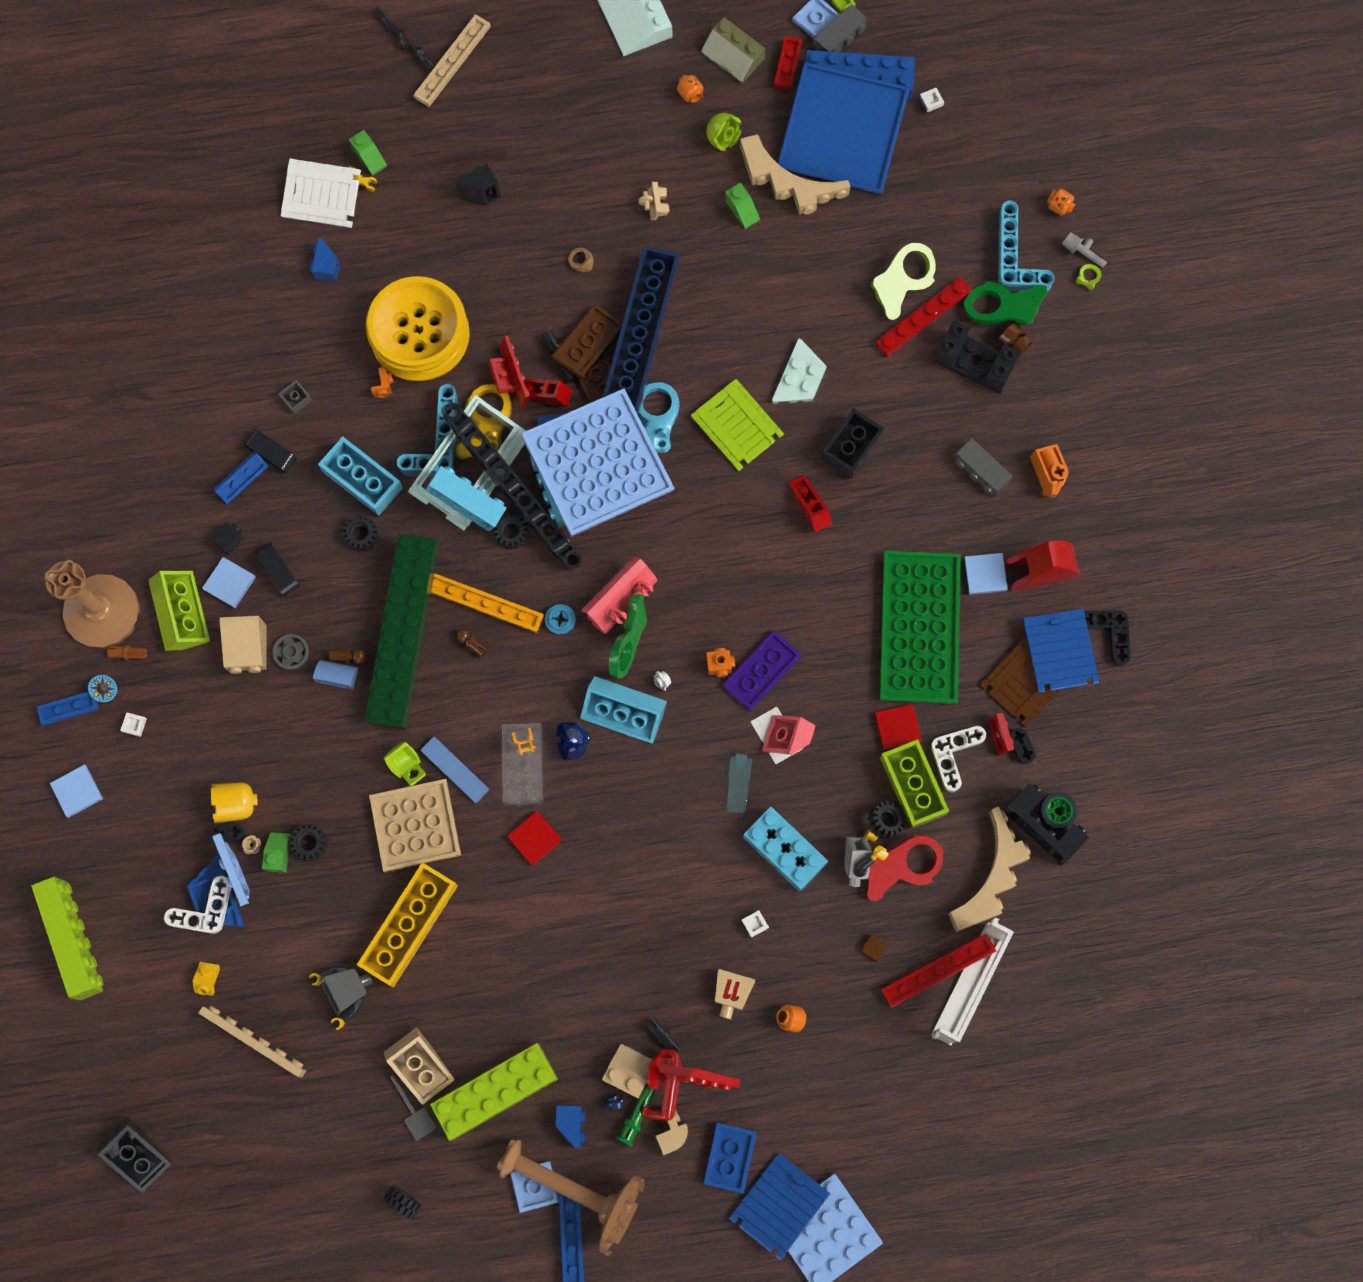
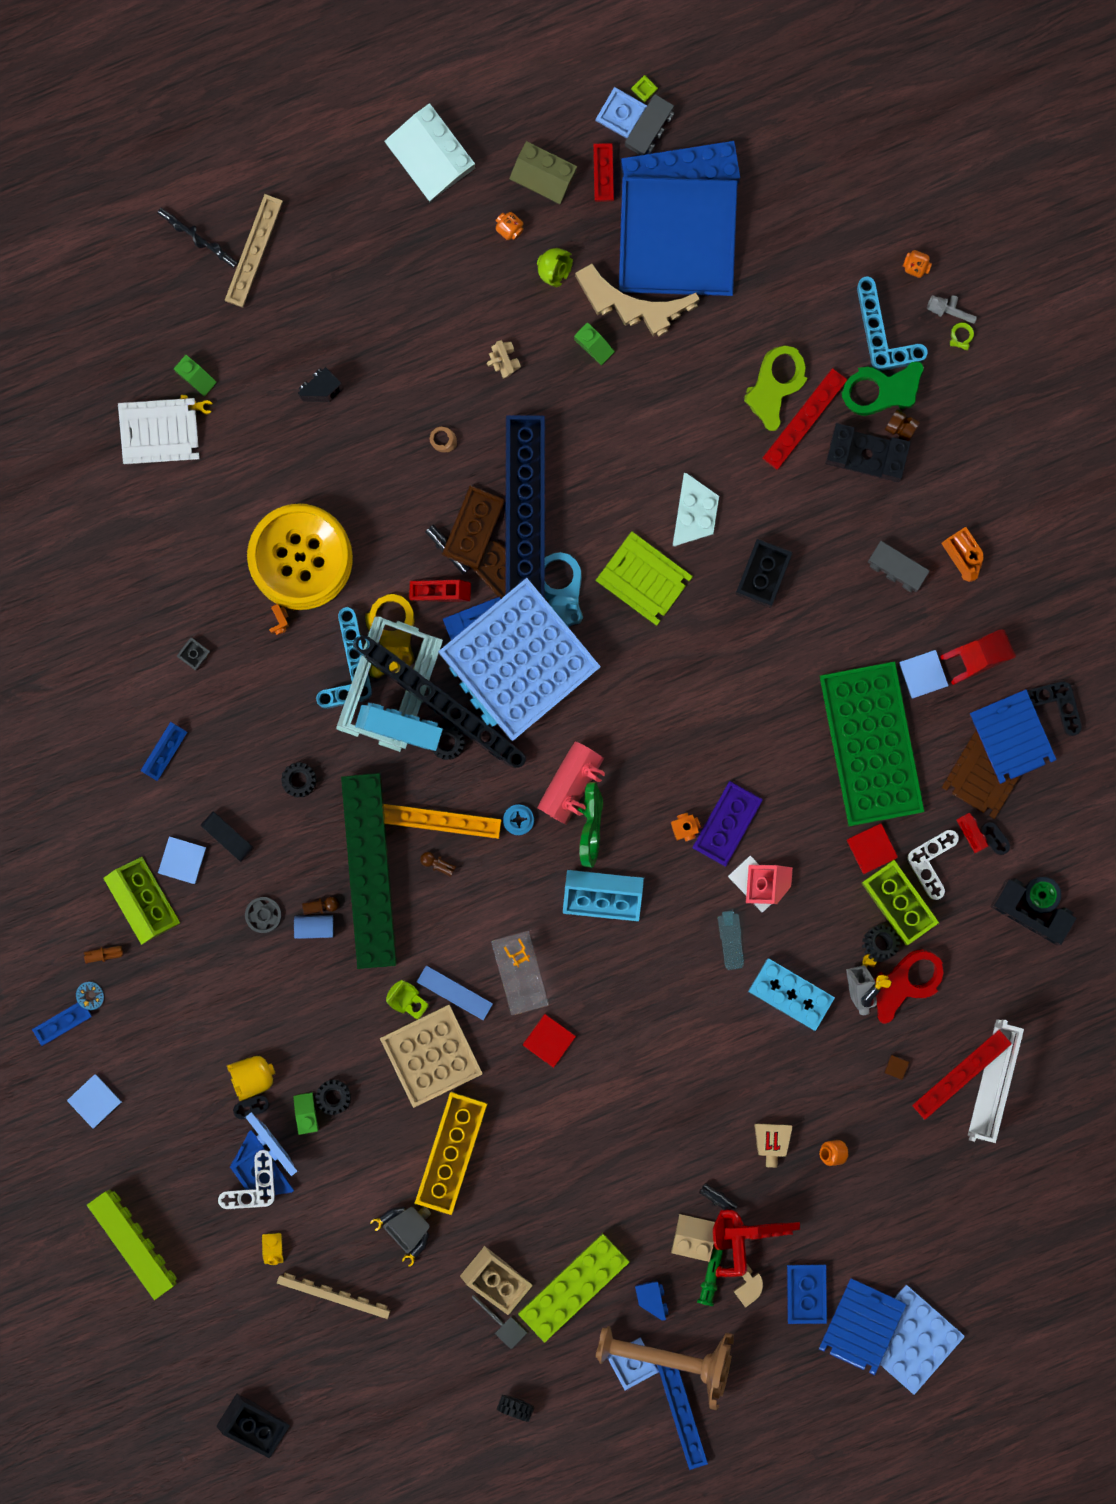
camera: 15 degrees left, 10 degrees up
(97, 608) = (64, 919): medium nougat piece -> none
(133, 724) = (130, 1024): white plate -> none
(228, 537) = (169, 815): black brick -> none
(243, 644) = (217, 921): tan slope -> none
(246, 844) = (278, 1107): tan plate -> none
(270, 451) = (185, 717): black beam -> none
(325, 262) = (185, 505): blue slope -> none
(360, 476) = (283, 722): medium azure brick -> none
(507, 374) = (401, 581): red bracket -> none
(573, 740) = (562, 938): clear blue cylinder -> none
(614, 1102) = (687, 1269): dark blue plate -> none
(662, 680) = (633, 857): white plate -> none
(755, 924) = (779, 1072): white plate -> none
(810, 503) = (735, 643): red slope -> none
(931, 99) = (761, 179): white plate -> none
(1000, 879) = (1003, 948): tan arch -> none

